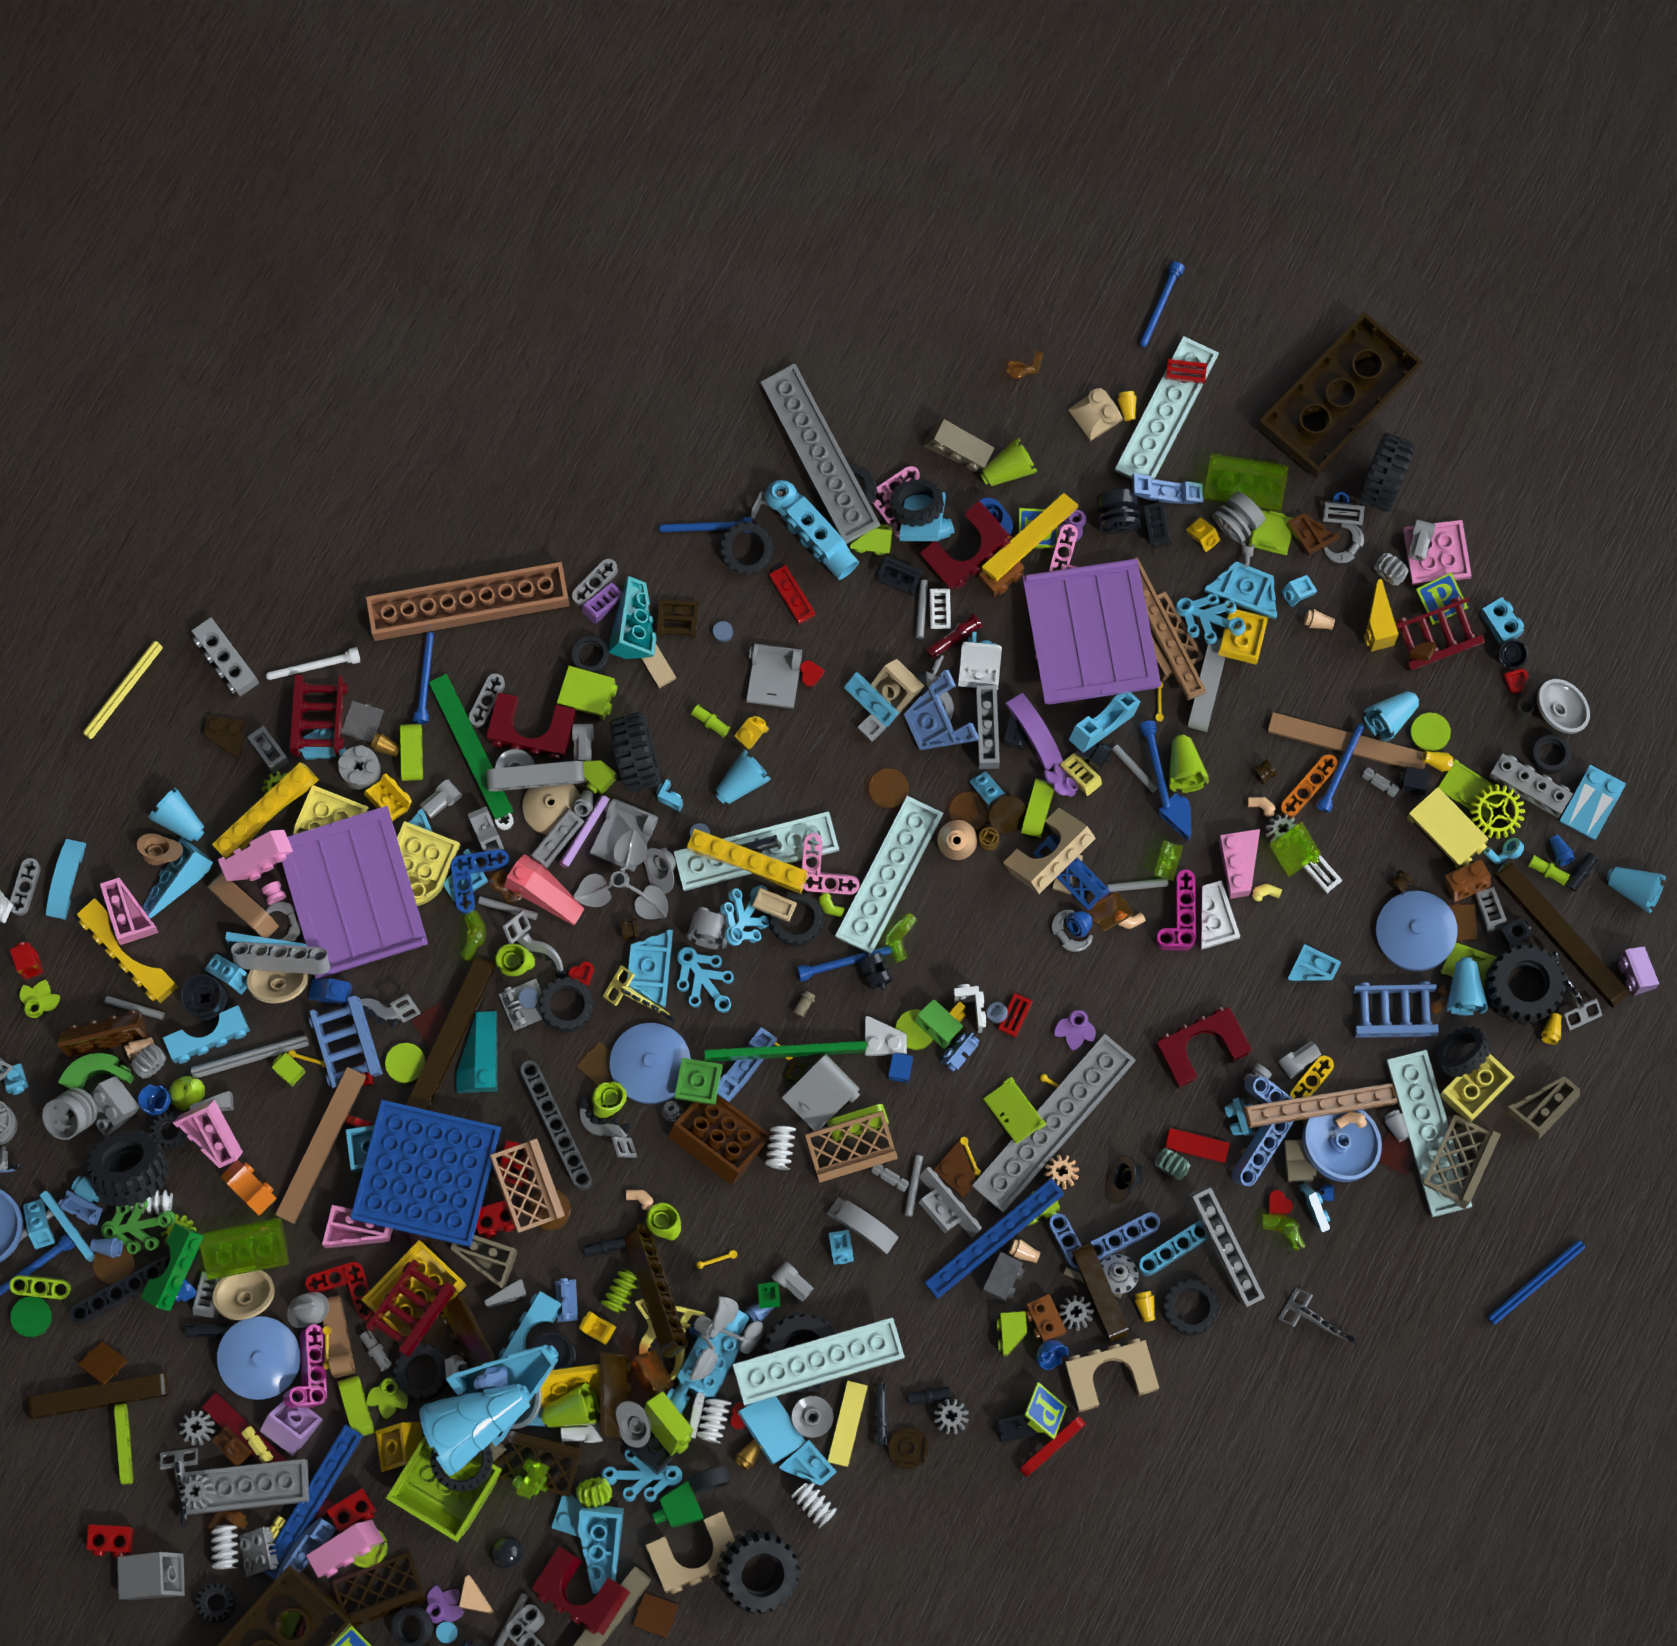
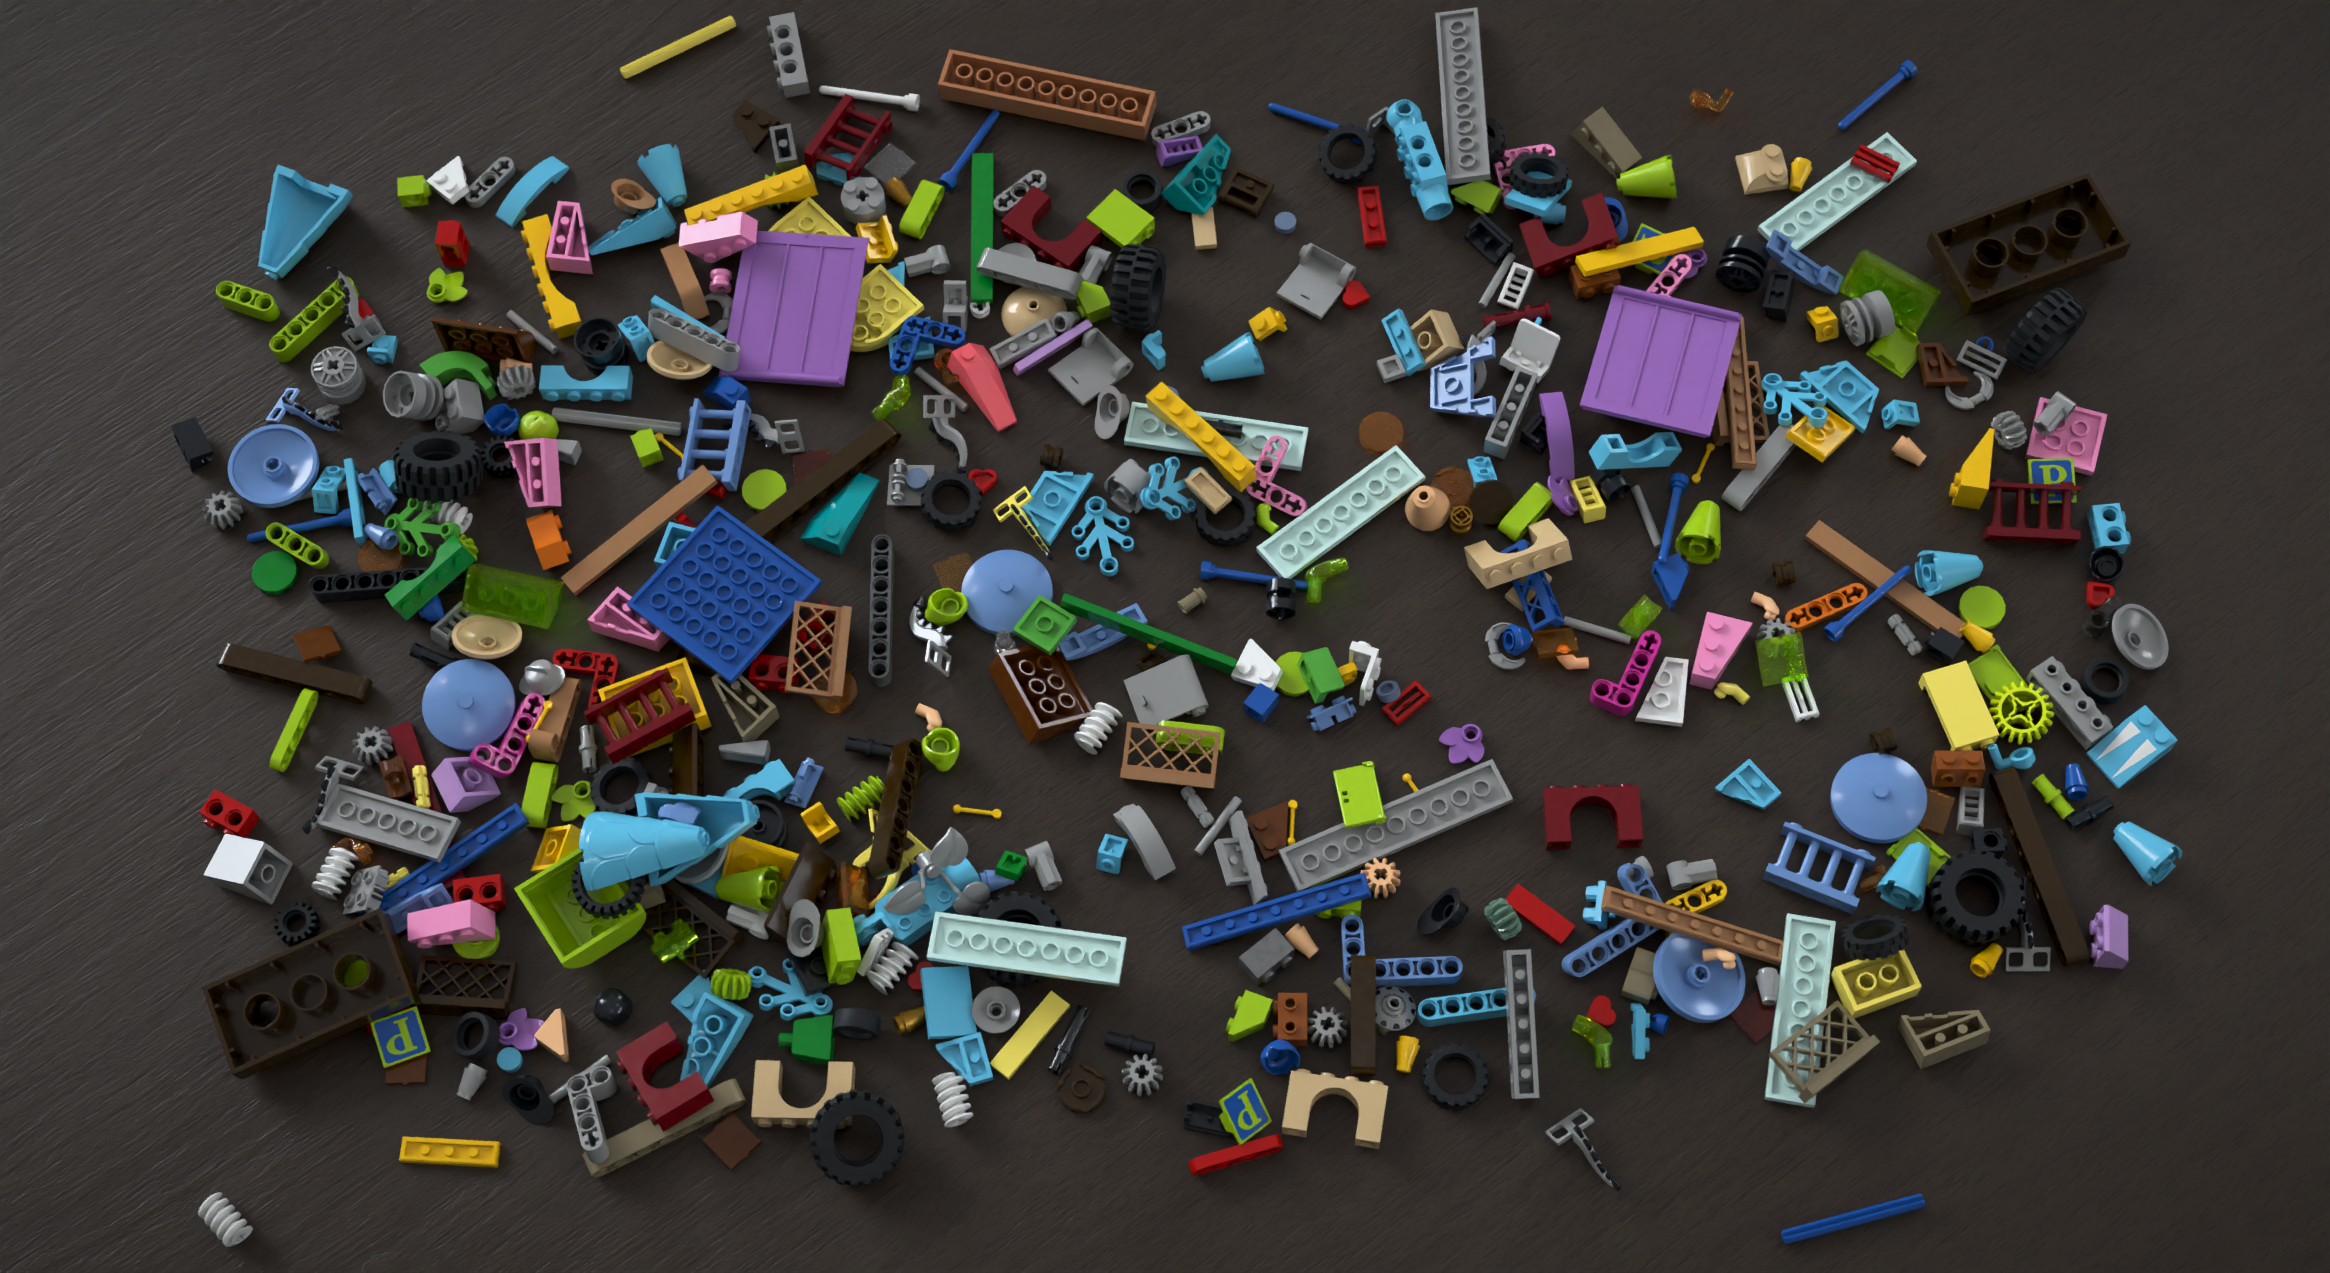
camera: 25 degrees right, 10 degrees down
(191, 1491) = (336, 804): light grey gear -> none
(510, 958) = (921, 437): lime hair -> none
(594, 888) = (1035, 408): light grey plant -> none
(710, 720) = (1231, 297): lime pin -> none
(1247, 552) = (1862, 358): light grey hand -> none
(1423, 651) = (2009, 520): reddish brown tile -> none

